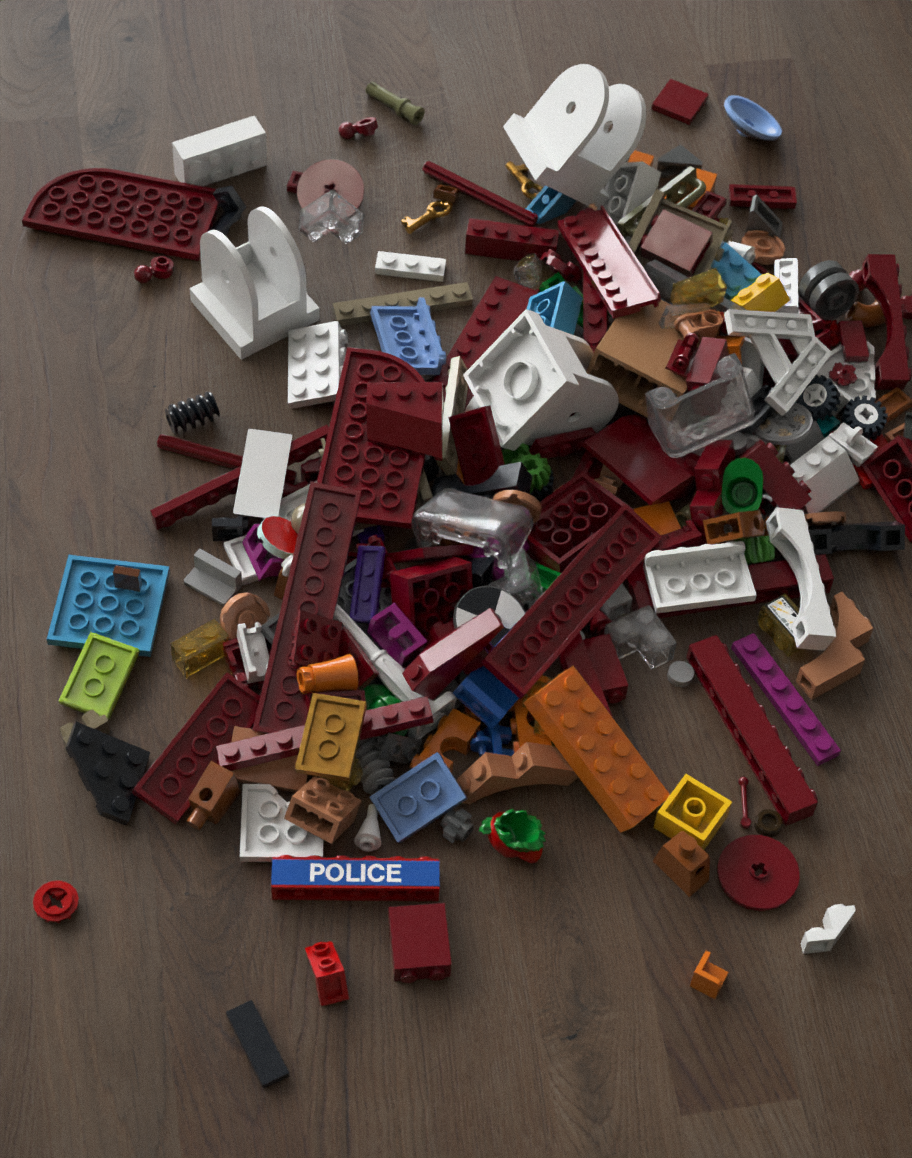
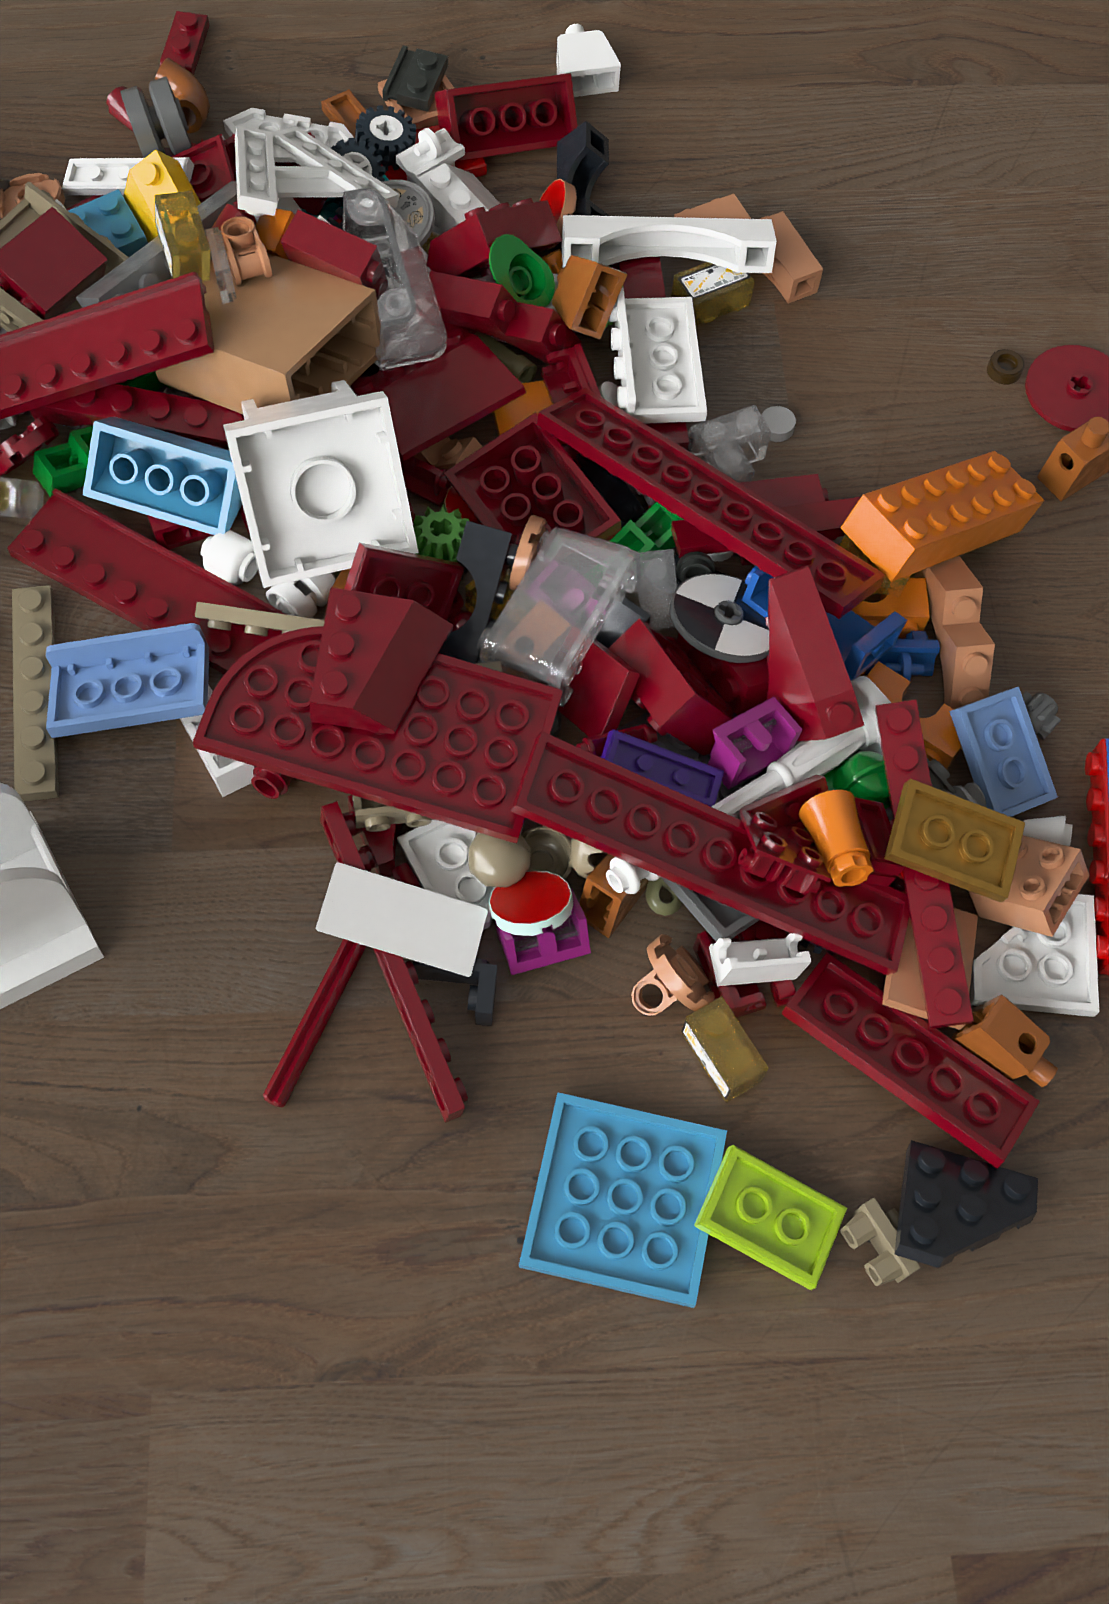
camera: 85 degrees left, 10 degrees up
(127, 578) = (594, 1155): tile -> none
(191, 412) = (226, 1037): black piece -> none
(213, 578) = (579, 1027): light grey panel -> none
(240, 559) = (540, 982): white tile -> none
(315, 363) = (150, 831): white bracket -> none
(515, 834) = (1054, 641): green hair -> none
(683, 355) = (315, 277): dark red hinge -> none
(694, 810) = (1017, 429): yellow brick -> none
(745, 822) = (1002, 391): dark red hinge -> none
(752, 730) = (873, 356): dark red brick -> none
(786, 699) = (818, 316): magenta plate -> none
(853, 341) = (225, 120): dark red tile -> none
(881, 279) = (153, 55): dark red arch -> none

